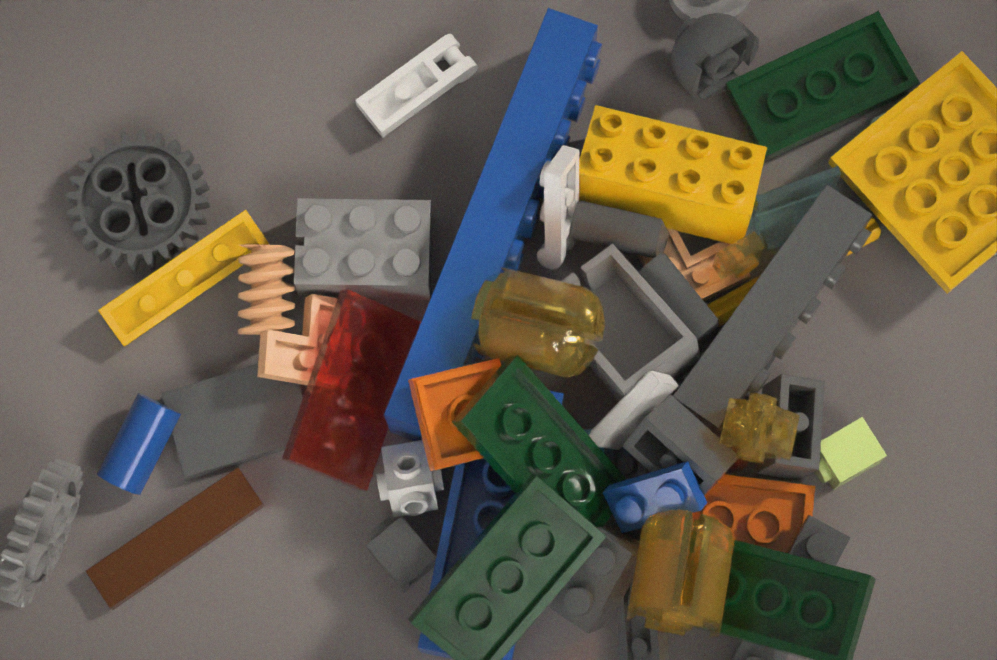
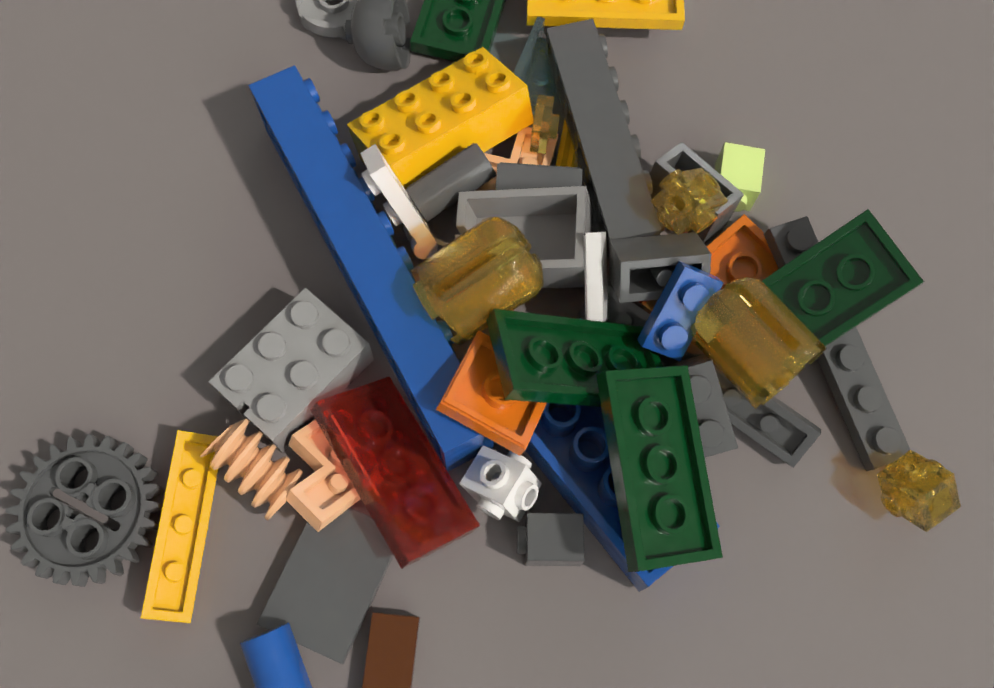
camera: 55 degrees left, 5 degrees down
(415, 85) = (208, 236): white plate -> none

